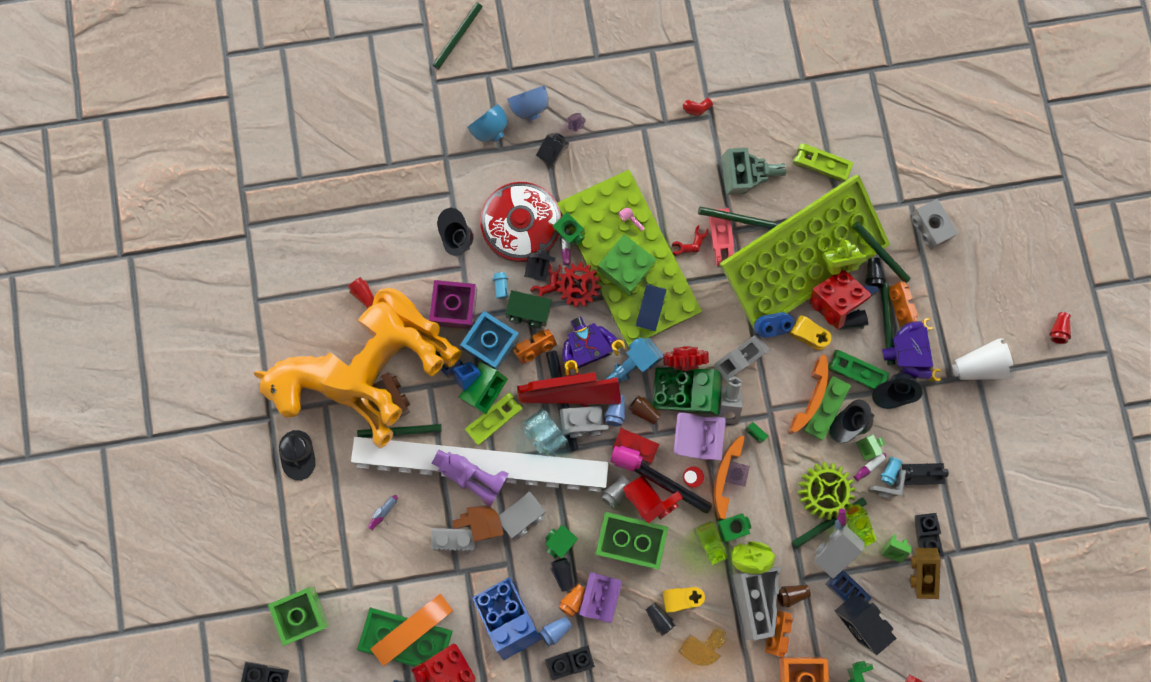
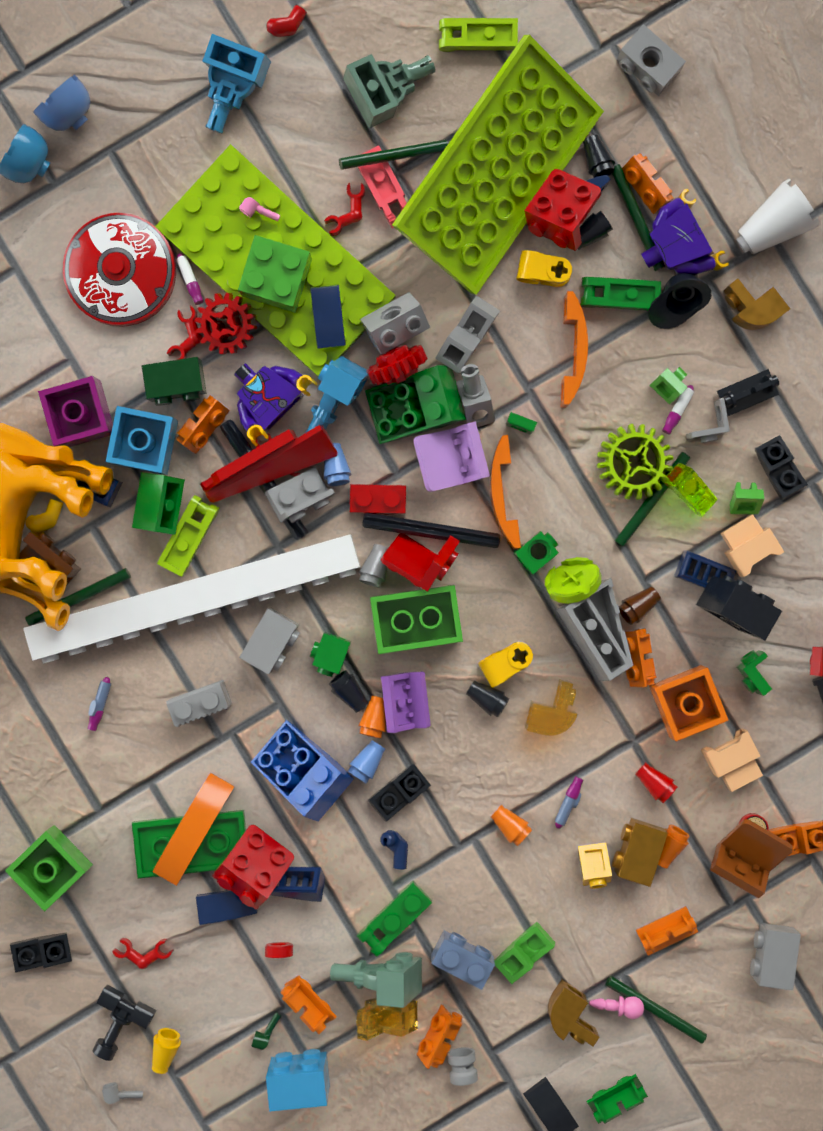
camera: 20 degrees left, 10 degrees up
(400, 369) = (45, 520): none -> yellow arm
(454, 231) = (39, 318): black piece -> none
(461, 470) = (172, 618): medium lavender piece -> none
(465, 375) = (129, 495): blue slope -> none
(483, 522) = (224, 668): dark orange brick -> none
(501, 285) = (127, 362): medium azure pin -> none
(538, 265) = (164, 318): black bracket -> none
(544, 432) = (257, 529): clear light blue brick -> none
(552, 148) = (120, 155): black bracket -> none
(565, 222) = (172, 256): green brick -> none
(576, 121) = (136, 107): clear purple plate -> none
(626, 458) = (370, 520): dark pink brick -> none
(644, 410) = (370, 450): reddish brown cone -> none
(647, 126) = (232, 77): none -> dark azure brick
(693, 477) = (463, 509): red tile -> none
(695, 329) = (395, 323): none -> light grey brick
(711, 542) = (515, 581): clear neon green leg -> none
(737, 474) = (516, 484): clear purple plate -> none
(776, 324) = (495, 274): blue plate -> none
(833, 398) = (601, 347): bright green plate -> none
(838, 551) = (676, 531): light grey brick -> none
(841, 519) = (666, 498): magenta piece -> none
(844, 255) = (549, 149): lime hips -> none
(852, 421) = (635, 362): black piece -> none
(881, 252) = (594, 125): dark green bar -> none
(887, 582) = (749, 544): none -> light nougat piece
(891, 471) = (706, 405): medium azure pin -> none
(926, 573) = (792, 514): pearl gold brick -> none
(946, 420) = (754, 313): none -> pearl gold brick

